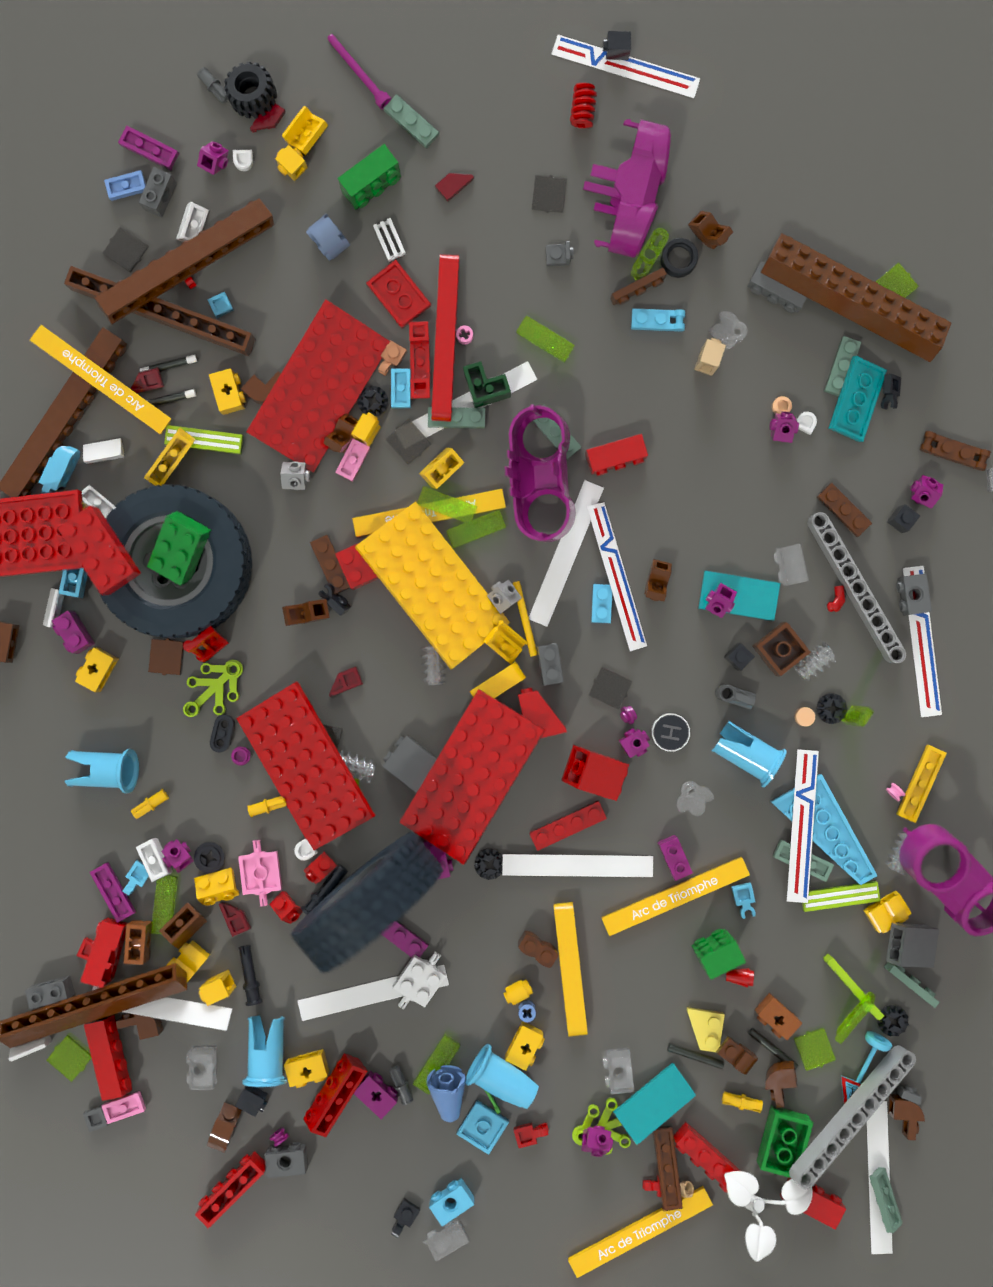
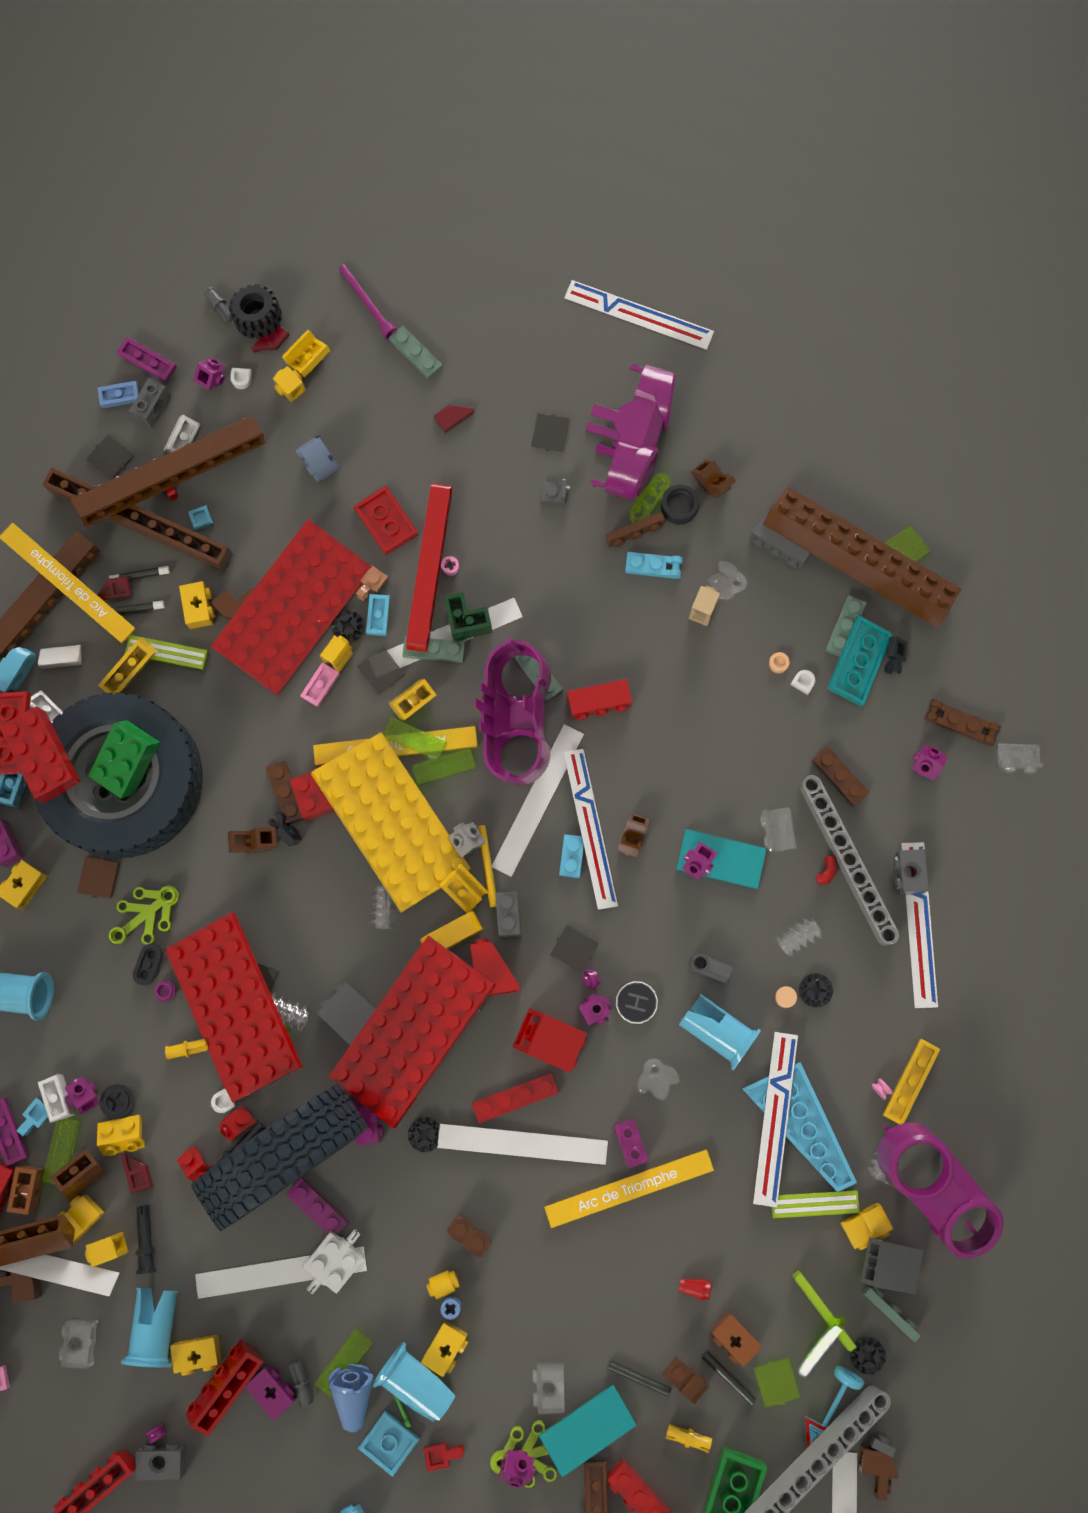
camera: 10 degrees right, 10 degrees down
(149, 804) = (59, 1036): yellow axle -> none
(209, 639) = (147, 862): red plate -> none
(224, 1127) = (93, 1416): reddish brown brick -> none
(252, 1100) = (130, 1386): black brick -> none
(260, 872) = (170, 1123): bright pink plate -> none
(294, 475) = (256, 696): light grey brick -> none
(341, 436) = (309, 660): reddish brown brick -> none
(345, 681) = (288, 918): dark red tile -> none
(370, 177) = (366, 403): green brick -> none
(383, 225) = (377, 451): white tile -> none
(419, 360) = (400, 588): red slope -> none
(545, 338) = (534, 576): clear neon green tile -> none
(570, 969) = (504, 1263): yellow beam -> none
(583, 105) = (591, 348): red piece -> none
(617, 45) = (630, 293): black brick -> none
(707, 1028) = (654, 1346): light yellow wing -> none
(718, 953) = (670, 1255): green brick -> none
(739, 656) = (716, 924): black brick -> none
(743, 896) = (705, 1194): medium azure plate -> none
(778, 1077) = (733, 1411): reddish brown brick -> none
(781, 649) = (762, 919): reddish brown brick -> none
(784, 427) = (780, 690): magenta brick -> none
(819, 867) = (791, 1167): sand green plate -> none
(858, 716) = (841, 997): clear neon green tile -> none
(903, 518) = (903, 789): black brick -> none

